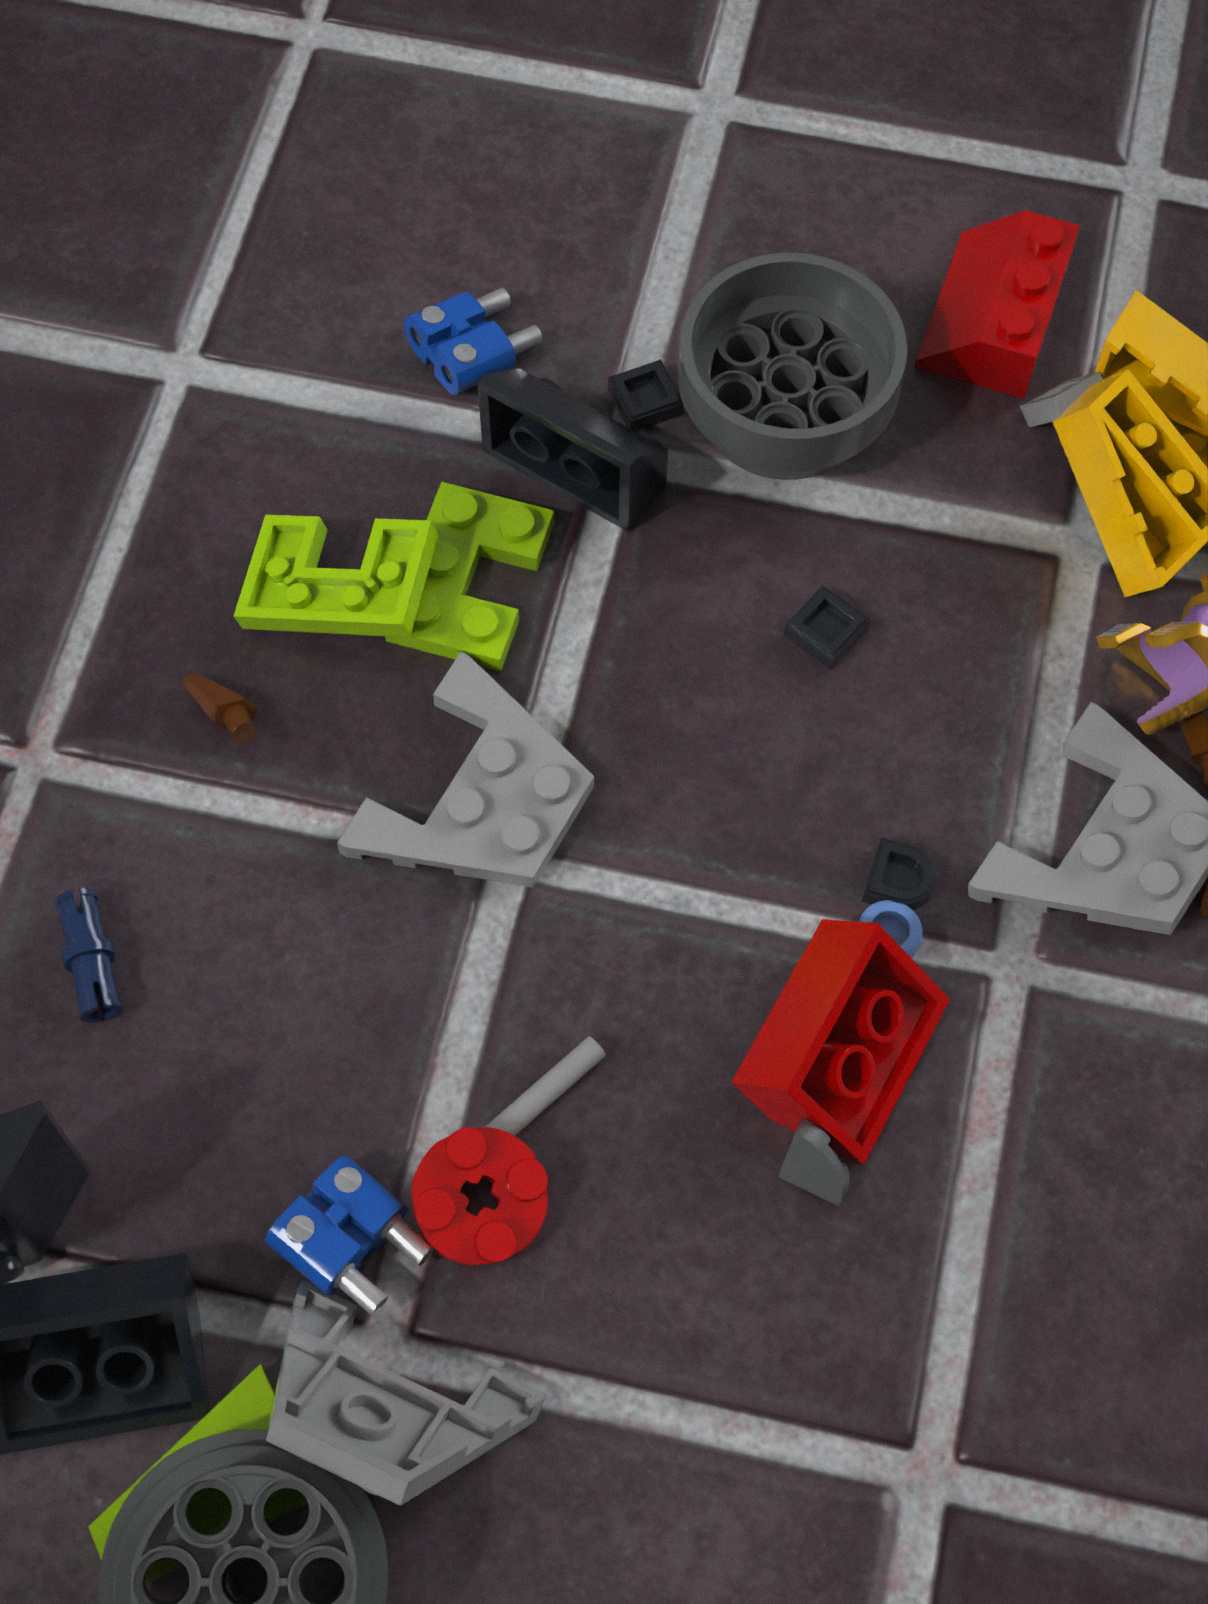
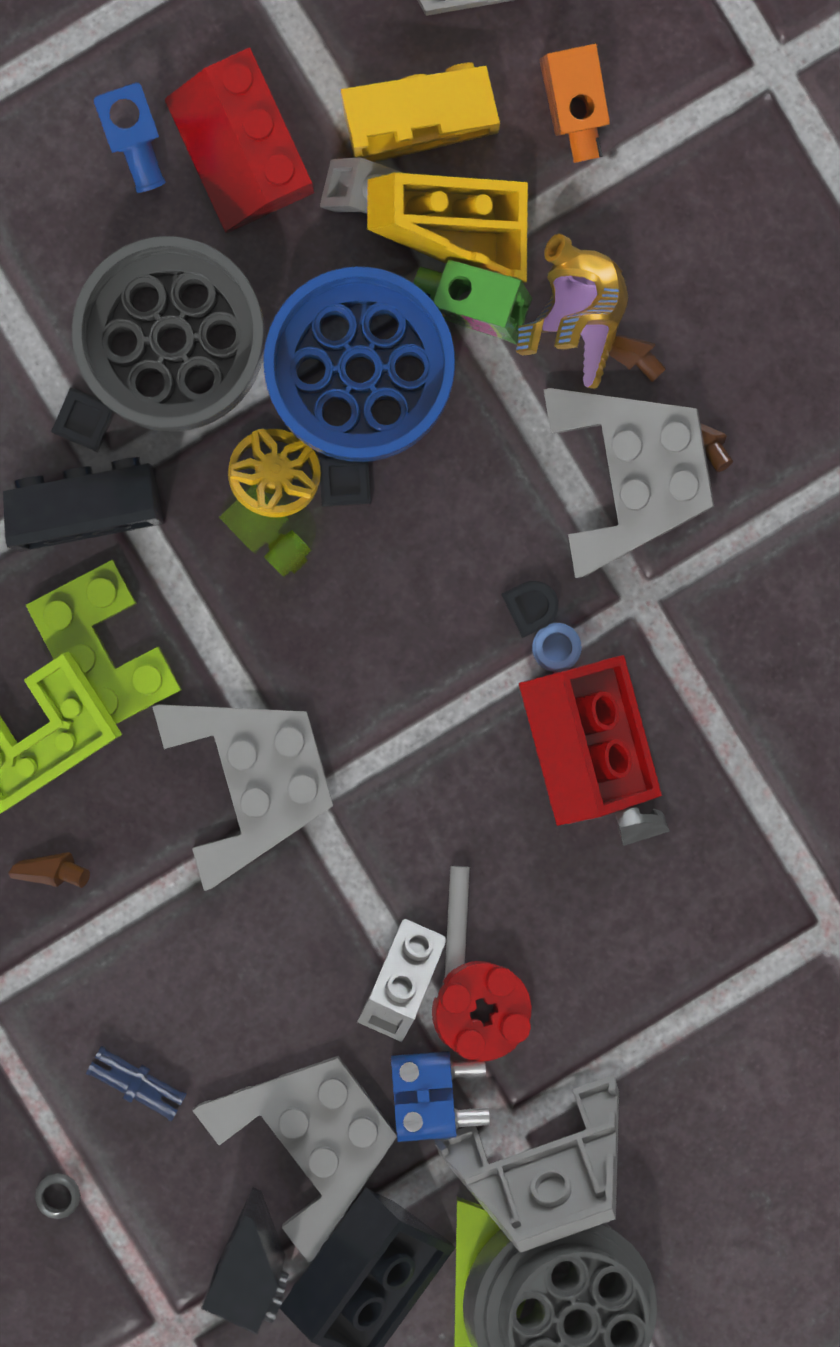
camera: 50 degrees left, 25 degrees up
(212, 1169) = (325, 1127): none -> light grey wing
(428, 1089) = (403, 980): none -> bracket
(713, 604) = (254, 530): none -> clear neon green plate
(770, 561) = (274, 473): none -> yellow wheel
(910, 219) = (133, 140): none -> blue bracket
(992, 483) = (359, 298): none -> blue wheel
(1101, 569) = (495, 301): none -> bright green torso

